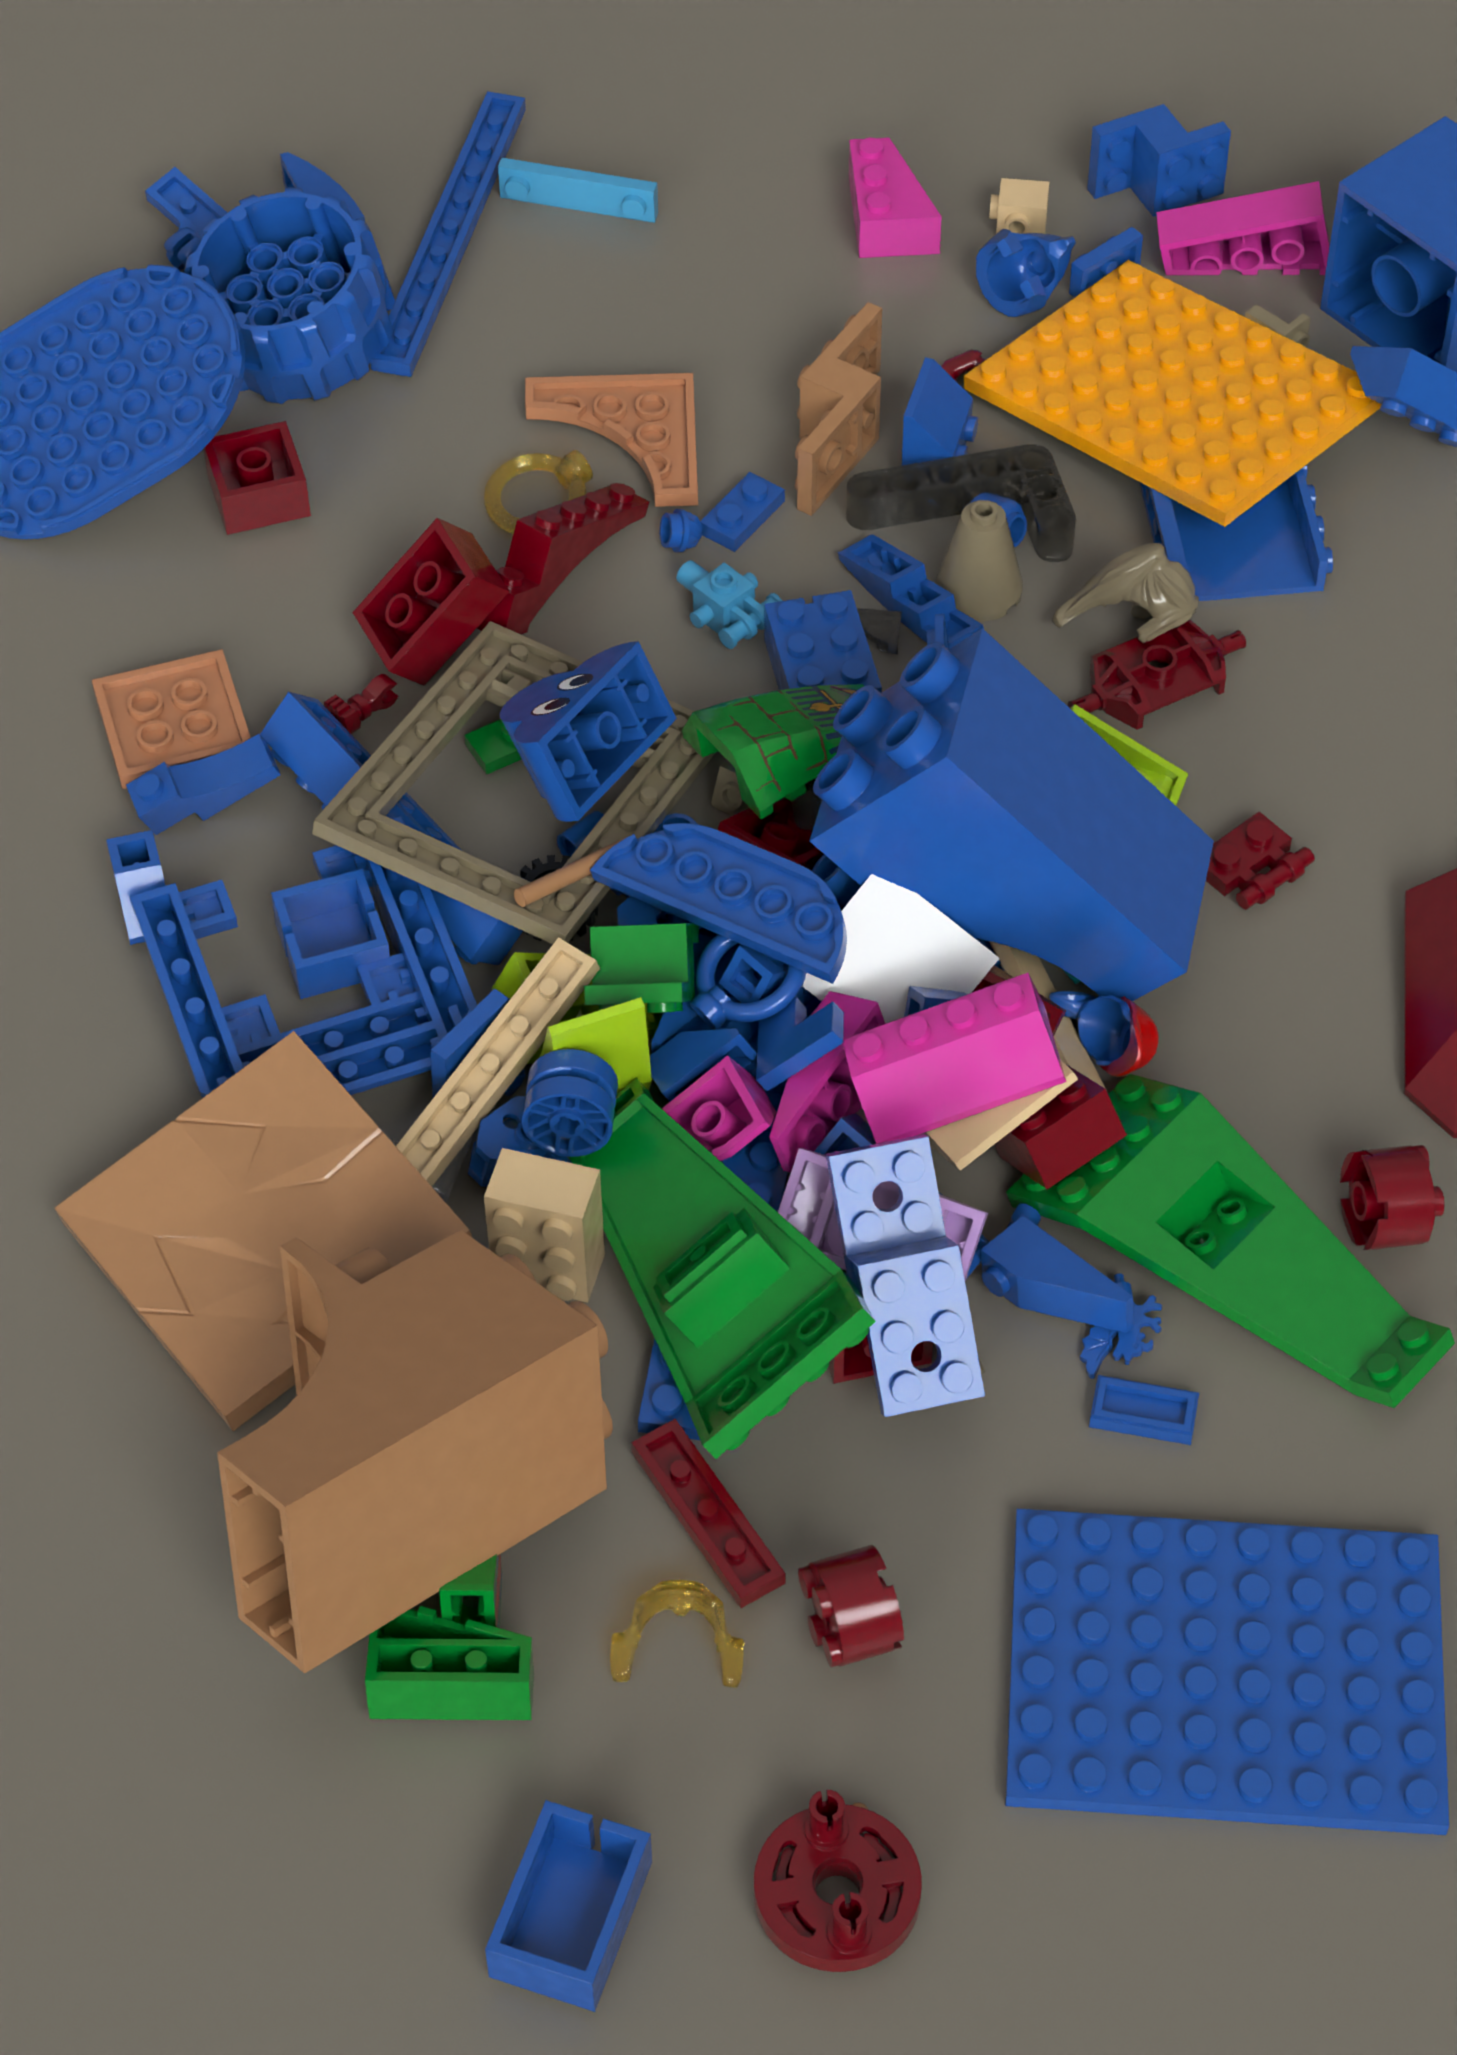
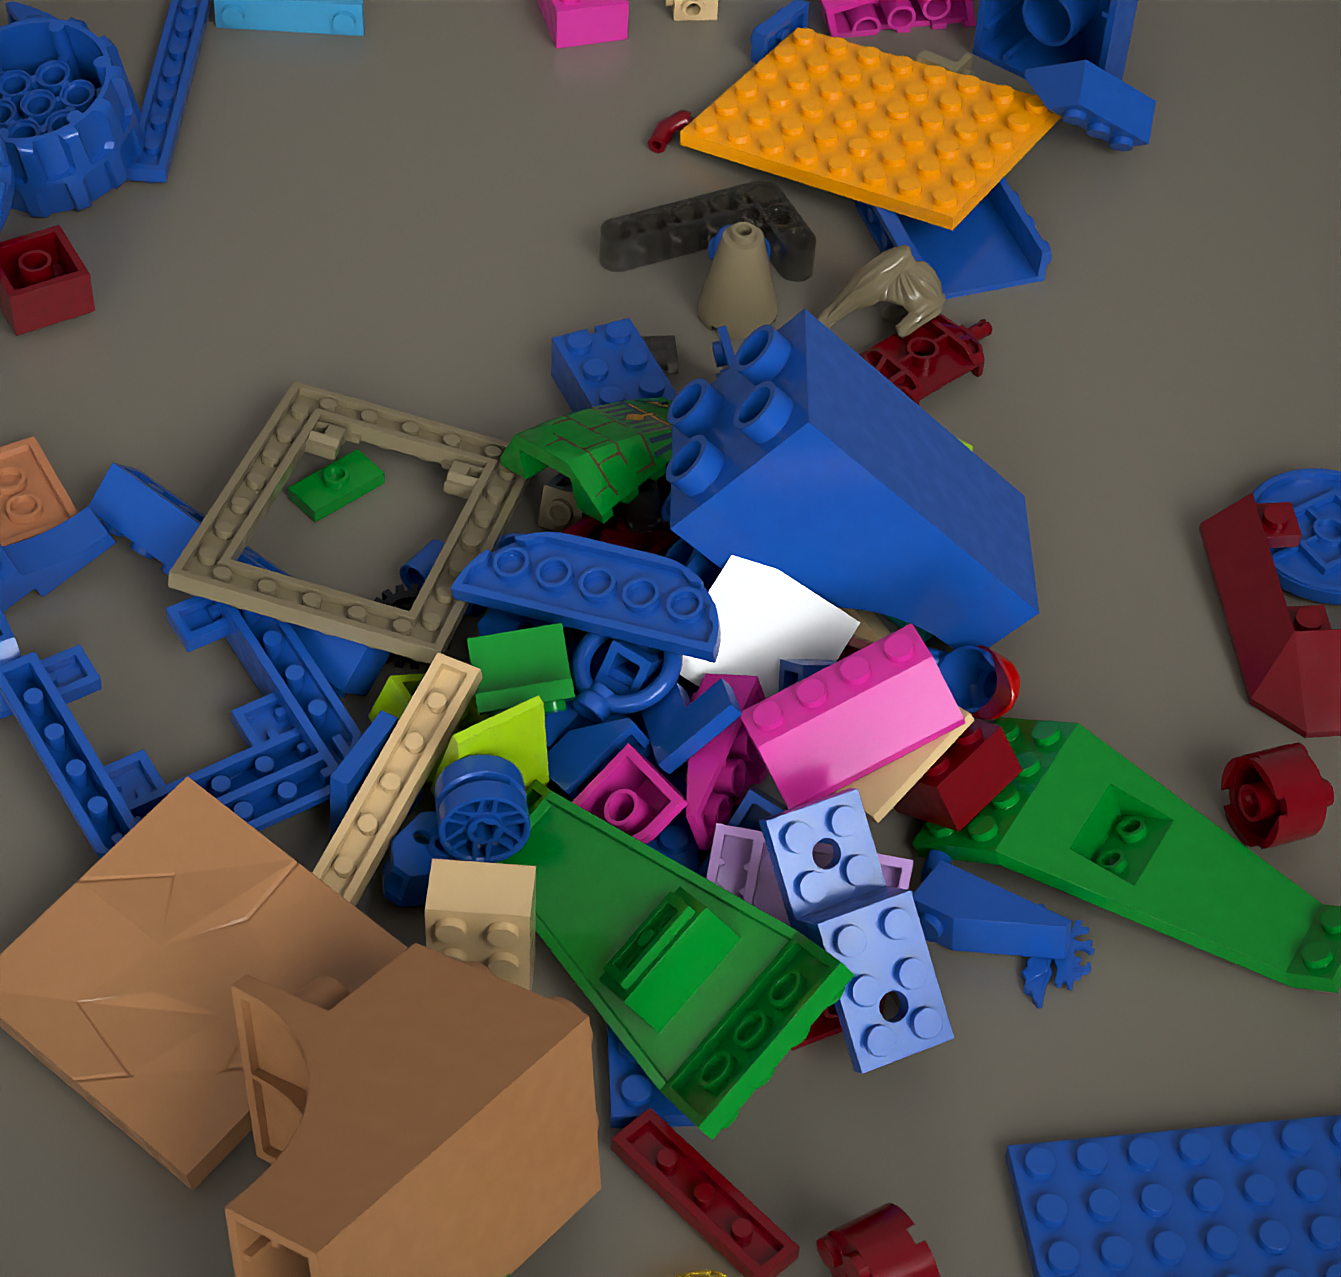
camera: 15 degrees left, 5 degrees down
(328, 931) = (193, 681): blue piece -> none
(360, 706) = (181, 472): dark red piece -> none
(430, 602) = (234, 368): dark red brick -> none
(553, 544) = (332, 317): dark red arch -> none
(559, 878) = (422, 599): medium nougat bar -> none
(571, 472) = (336, 247): clear yellow piece -> none
(587, 726) = (415, 460): blue brick -> none
(640, 412) = (392, 191): nougat plate -> none
(680, 530) = (451, 287): blue plate -> none
(724, 601) = (509, 343): dark azure piece -> none
(742, 511) = (504, 266): blue plate -> none
(839, 408) = (576, 167): medium nougat bracket -> none
(902, 585) = (669, 311): blue slope -> none
(937, 417) = (668, 165): blue slope -> none
(1022, 270) = (709, 41): blue piece -> none
(1144, 1410) = (1099, 1030): blue tile -> none
(1246, 852) = (1051, 502): dark red plate -> none

